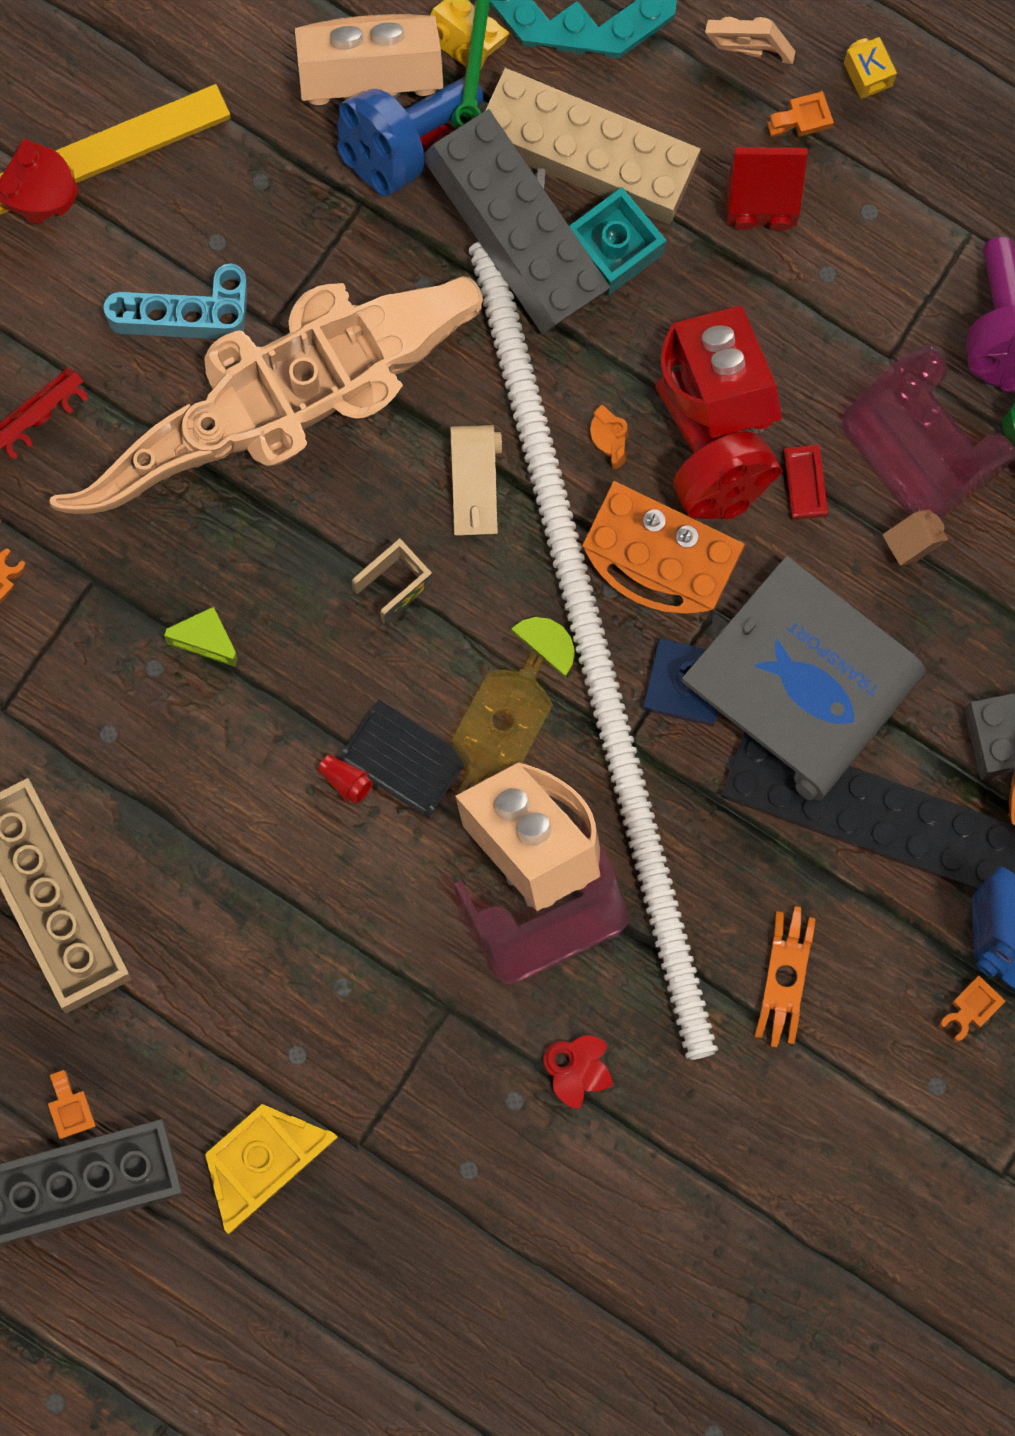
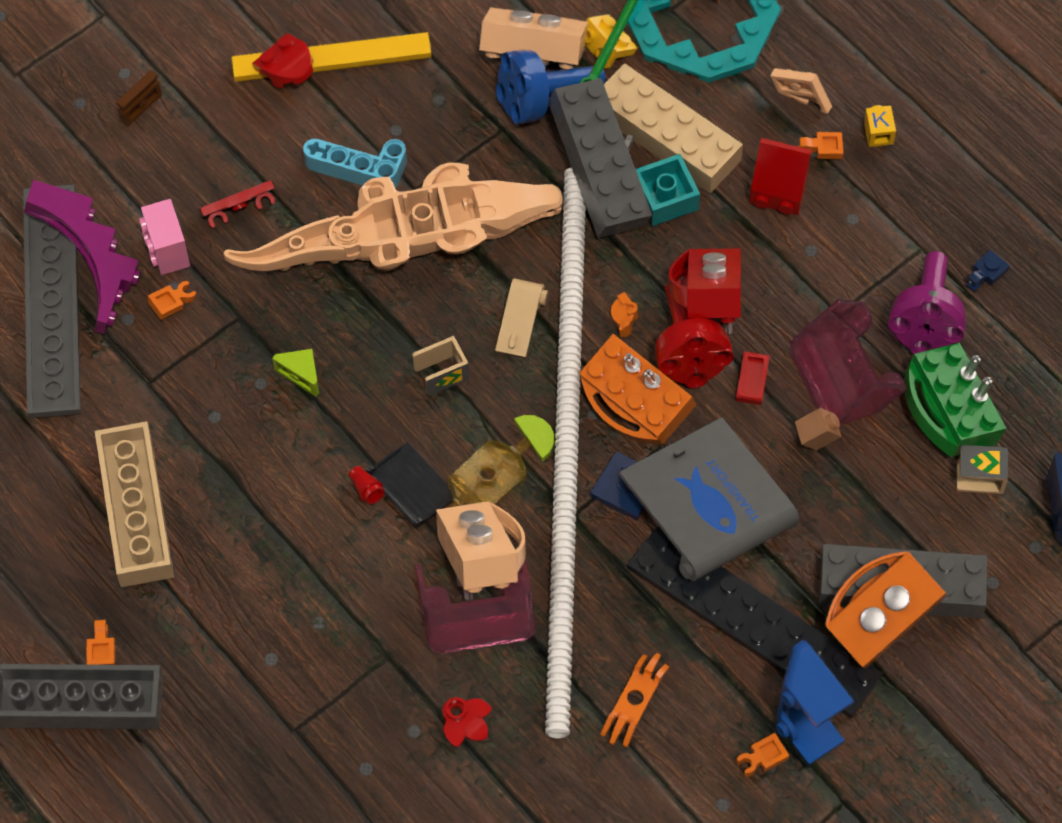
camera: 25 degrees right, 15 degrees down
(261, 1160) = (220, 719): yellow wing -> none

